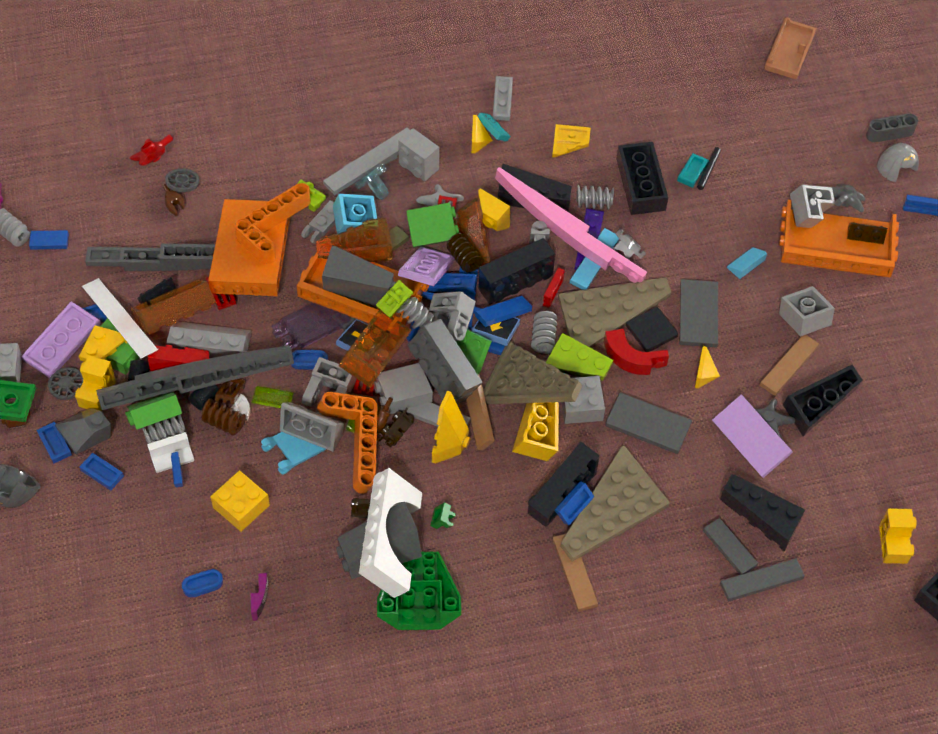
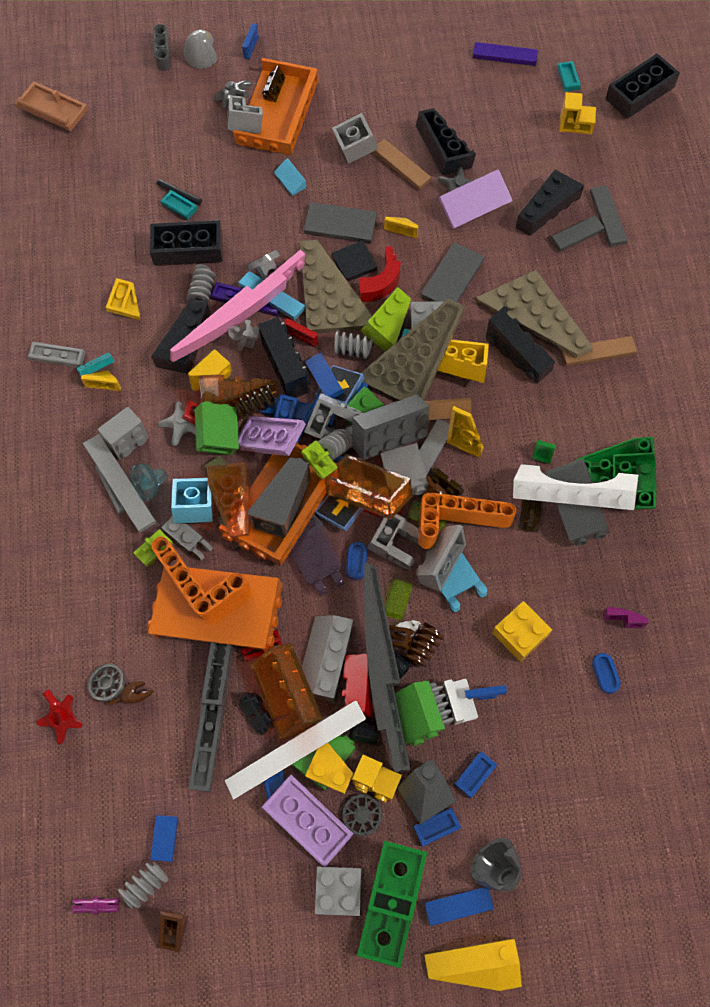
camera: 80 degrees left, 10 degrees up
(574, 503) = (540, 338): blue tile -> none

